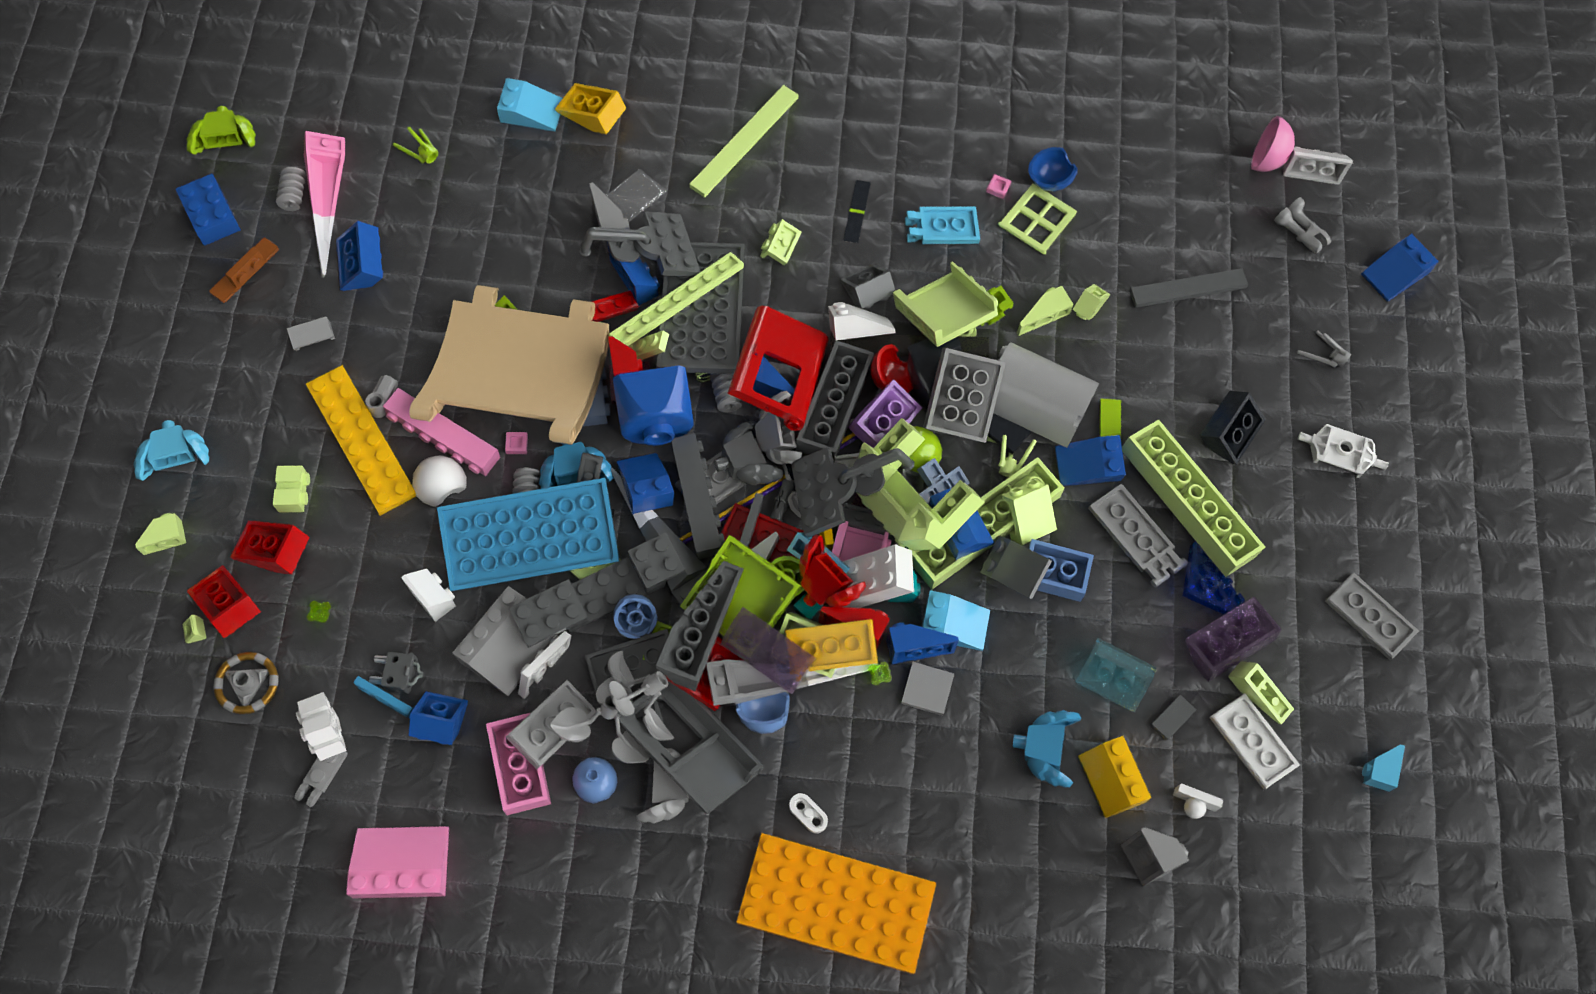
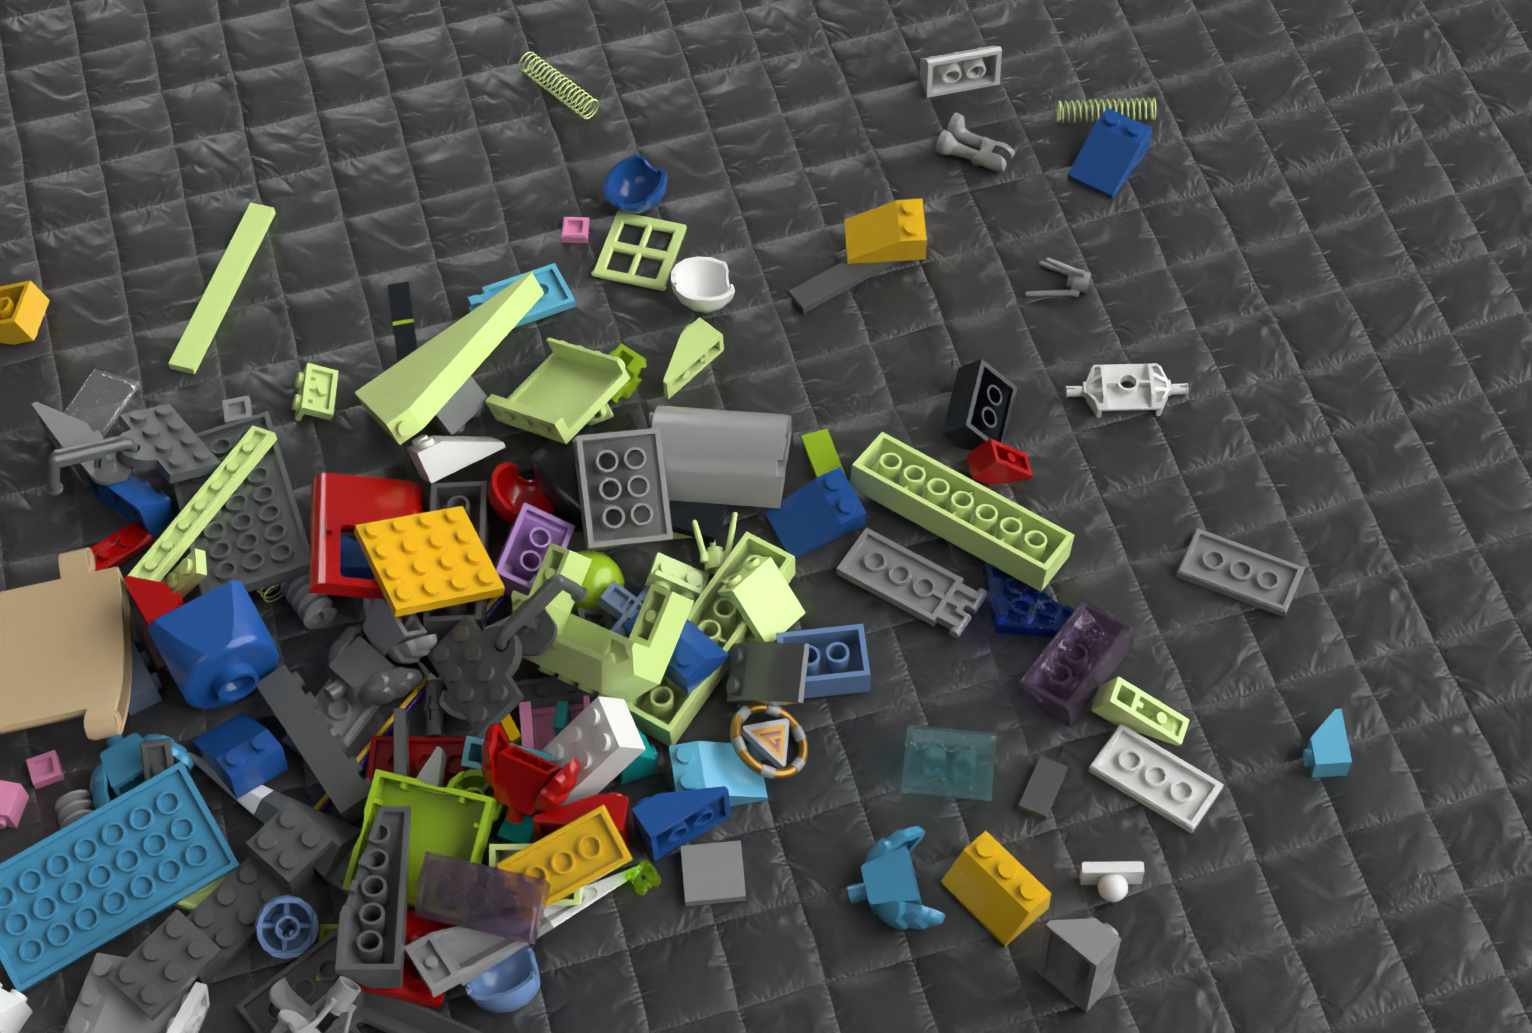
camera: 15 degrees left, 10 degrees down
(724, 234) = (237, 409): none -> light grey tile
(815, 399) = (428, 561): none -> yellow plate
(858, 262) = (424, 381): none -> yellowish green slope
(864, 542) = (562, 717): none -> teal tile
(977, 471) = (677, 577): none -> yellowish green bracket
(998, 612) = (768, 741): none -> piece
(1024, 74) = (543, 77): none -> yellowish green piece
(1072, 261) = (702, 283): none -> white cylinder
(1090, 302) = (744, 325): yellowish green slope -> none
(1216, 271) = (887, 233): none -> yellow slope
(1231, 472) = (998, 463): none -> red slope
(1273, 146) = (900, 64): bright pink piece -> none
(1437, 246) = (1060, 109): none -> yellowish green piece

